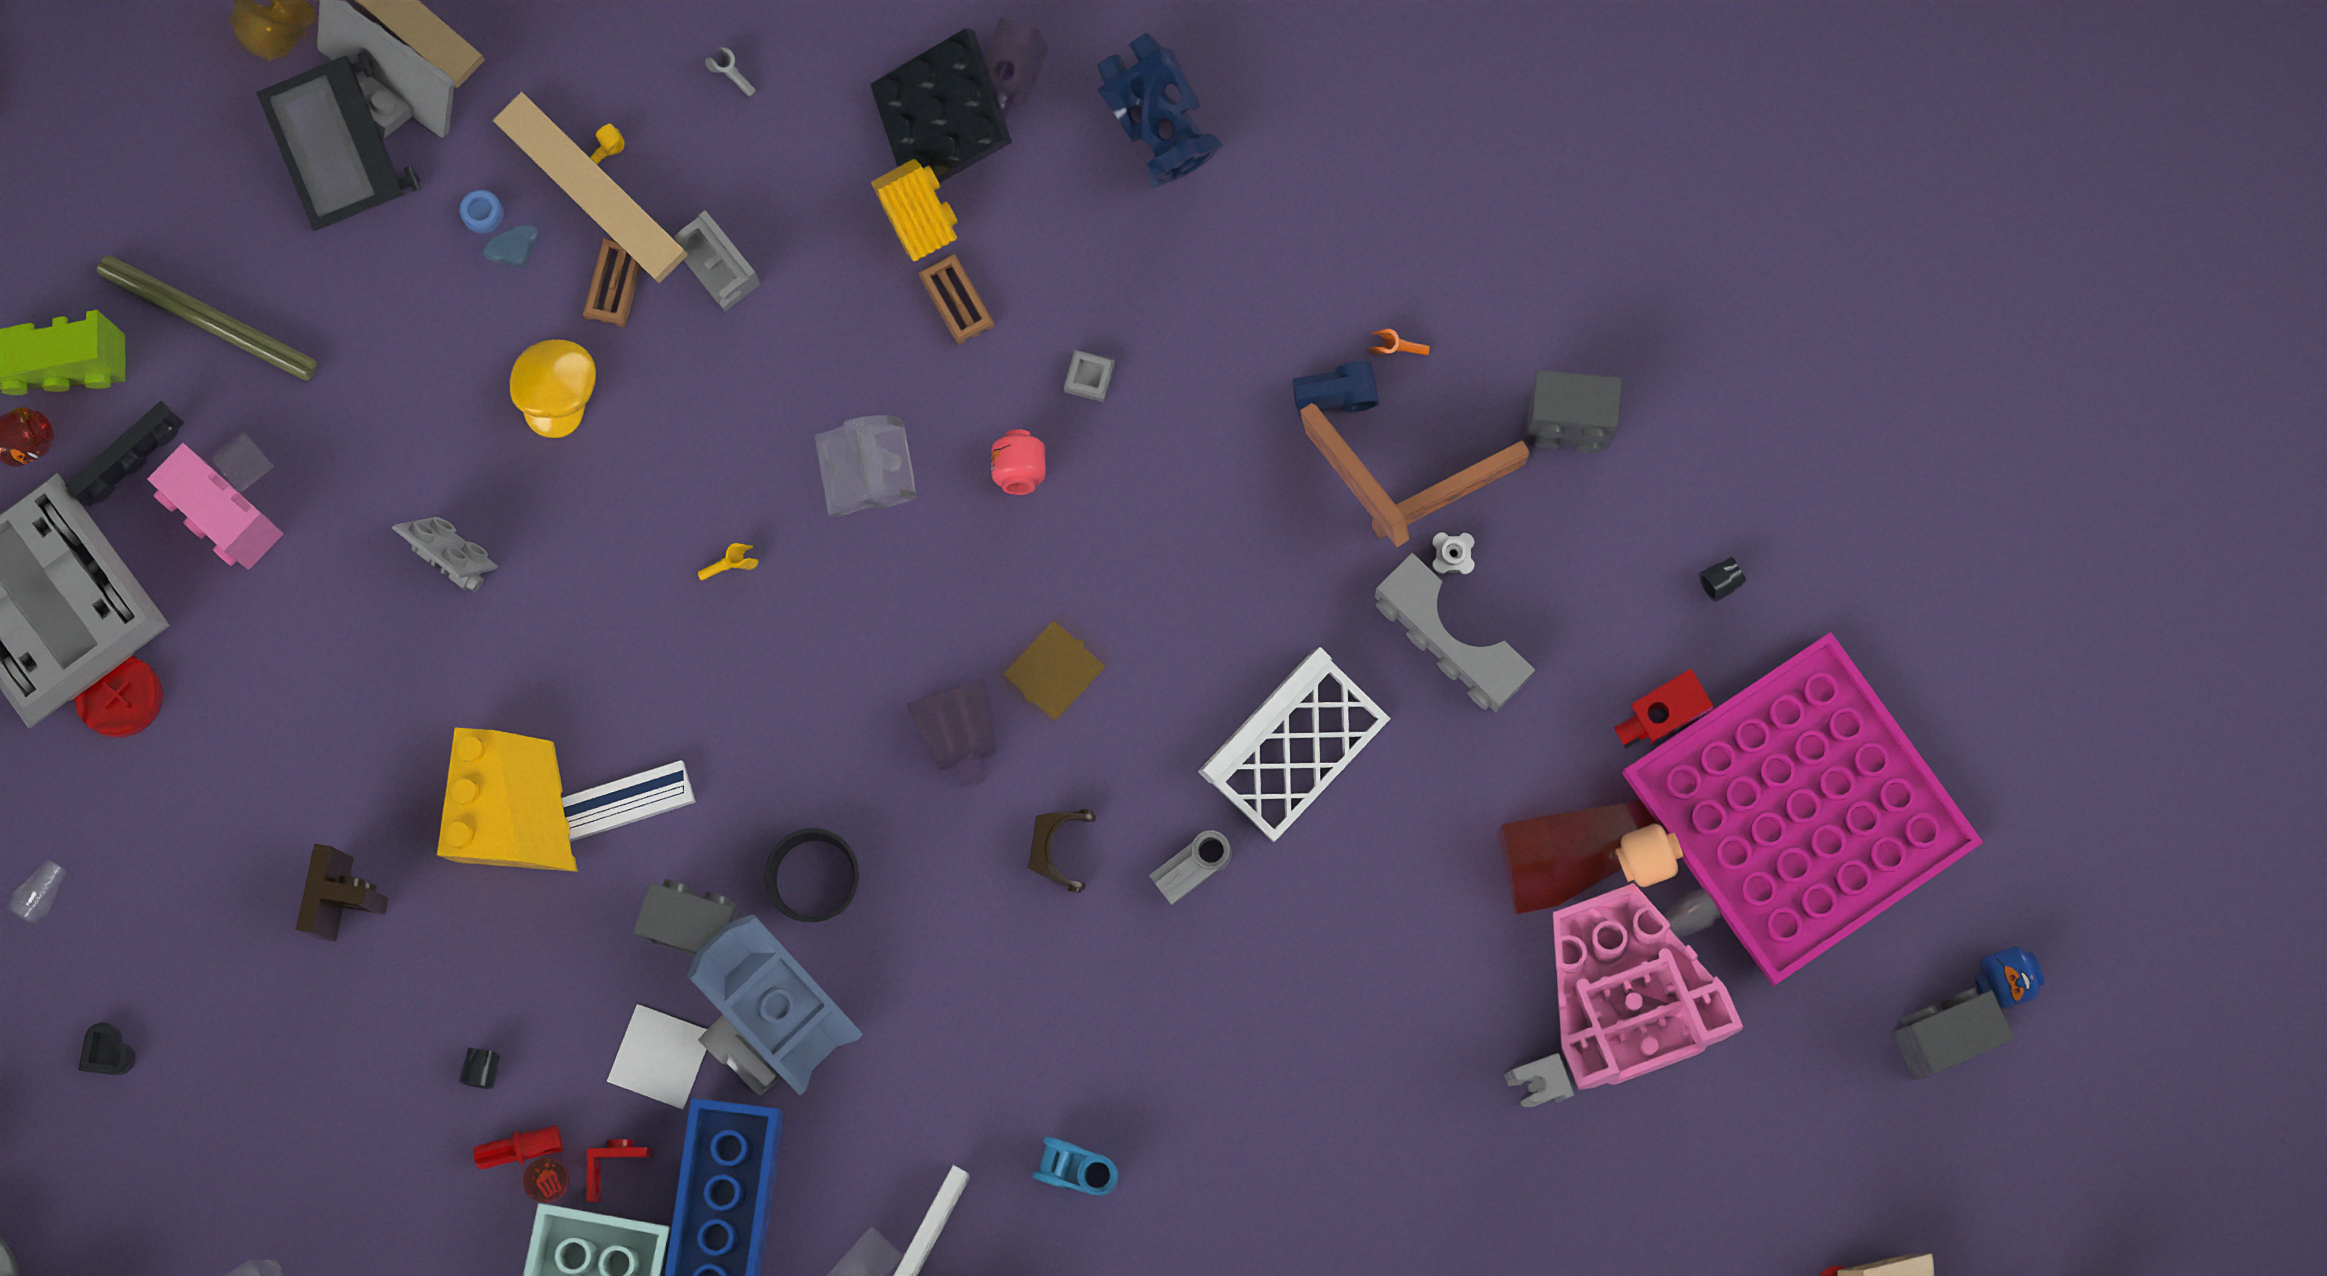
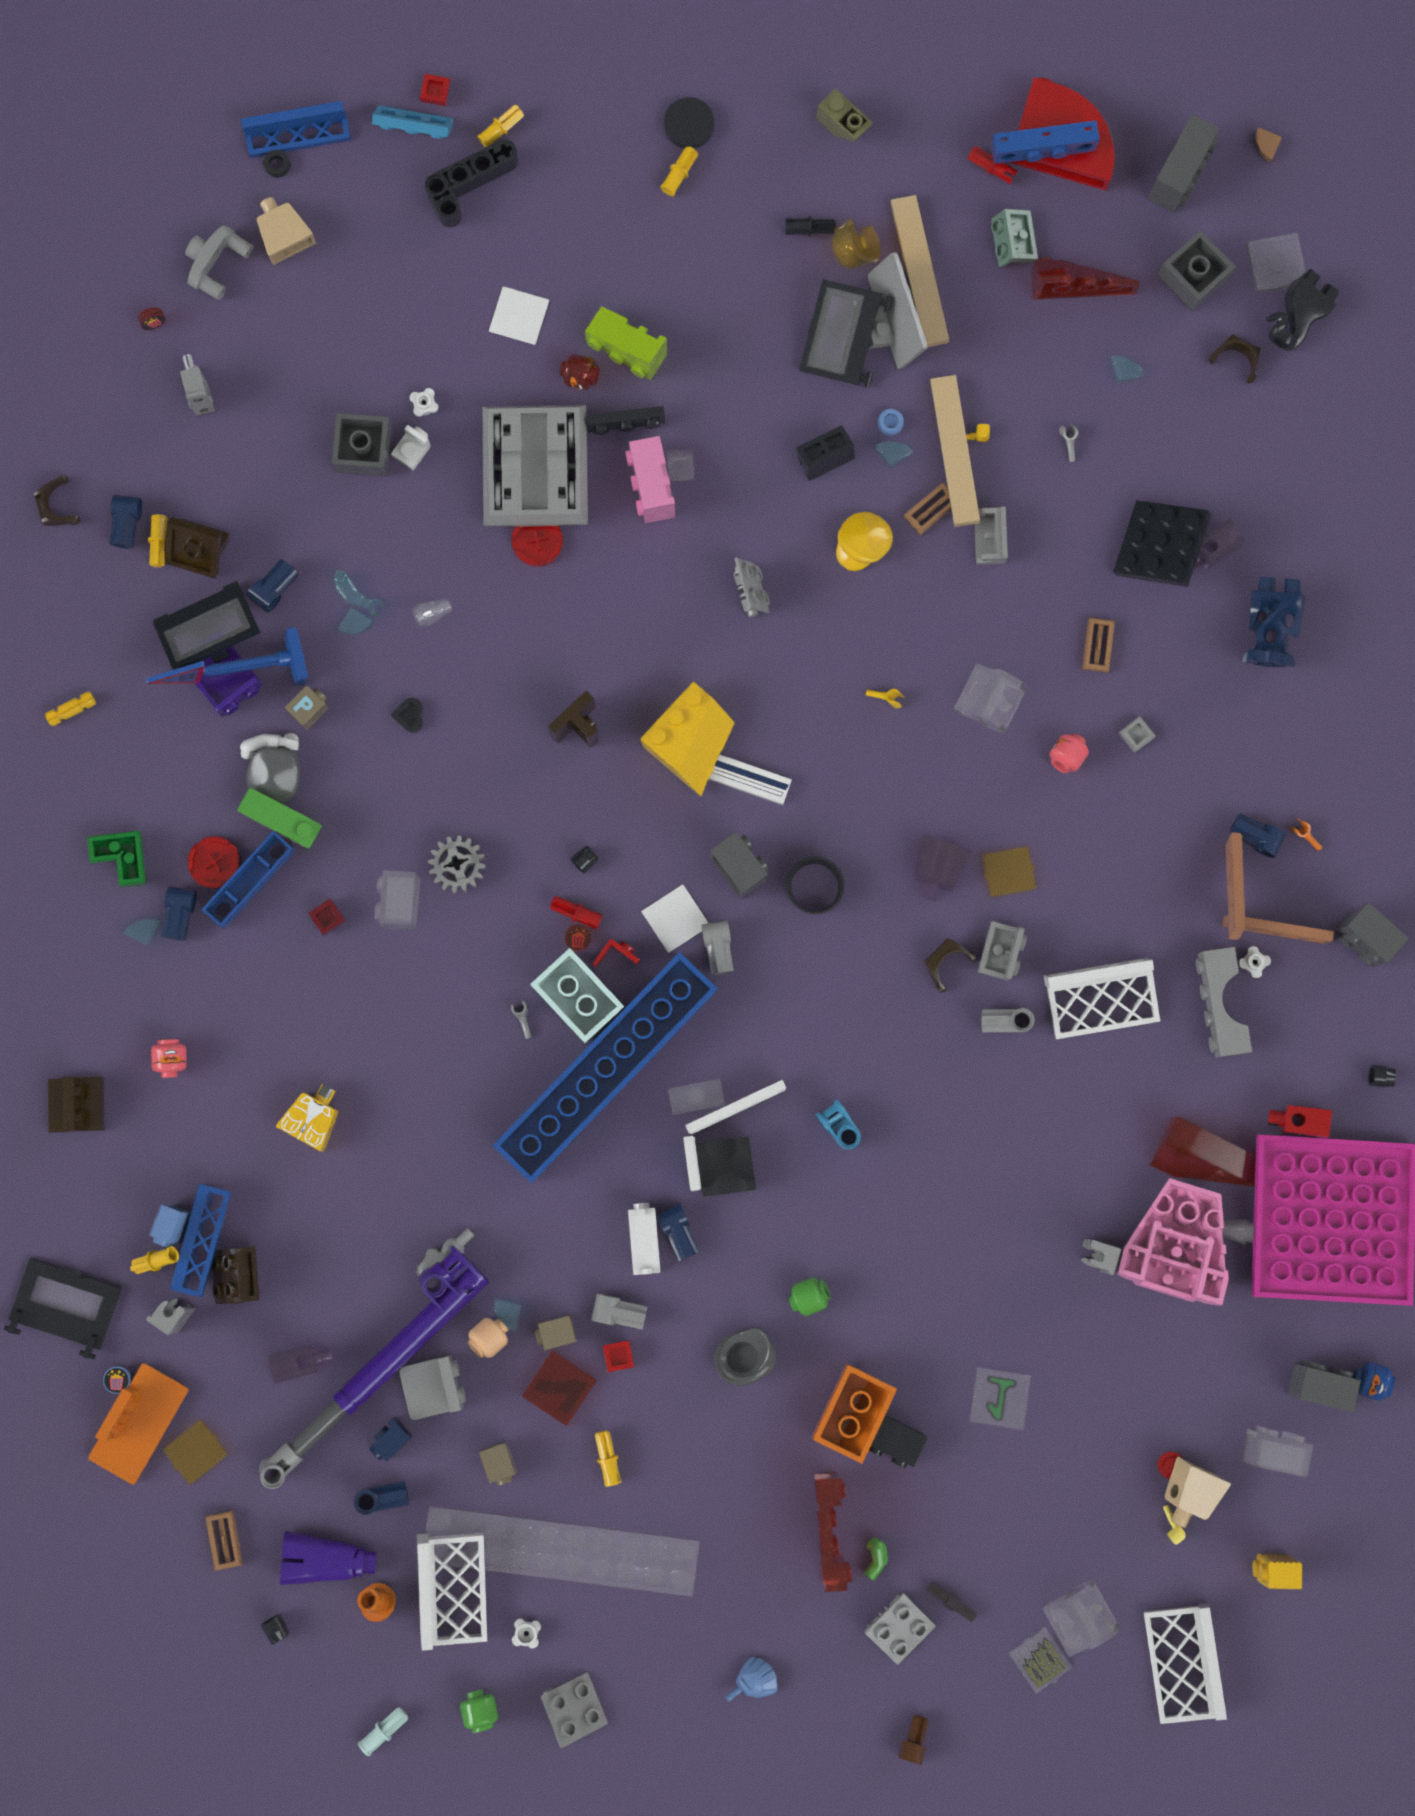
camera: 30 degrees right, 5 degrees up
(195, 40) = (809, 226): none -> black axle
(207, 317) = (714, 377): olive axle -> none
(324, 1214) = (453, 853): none -> light grey gear
(422, 309) = (826, 452): none -> black hinge
(770, 999) = (753, 932): sand blue piece -> none
(915, 209) = (1112, 584): yellow brick -> none
(1119, 781) = (1001, 951): none -> light grey bracket
(1649, 855) = (1239, 1186): light nougat head -> none
(1958, 1167) = (1276, 1452): none -> clear piece

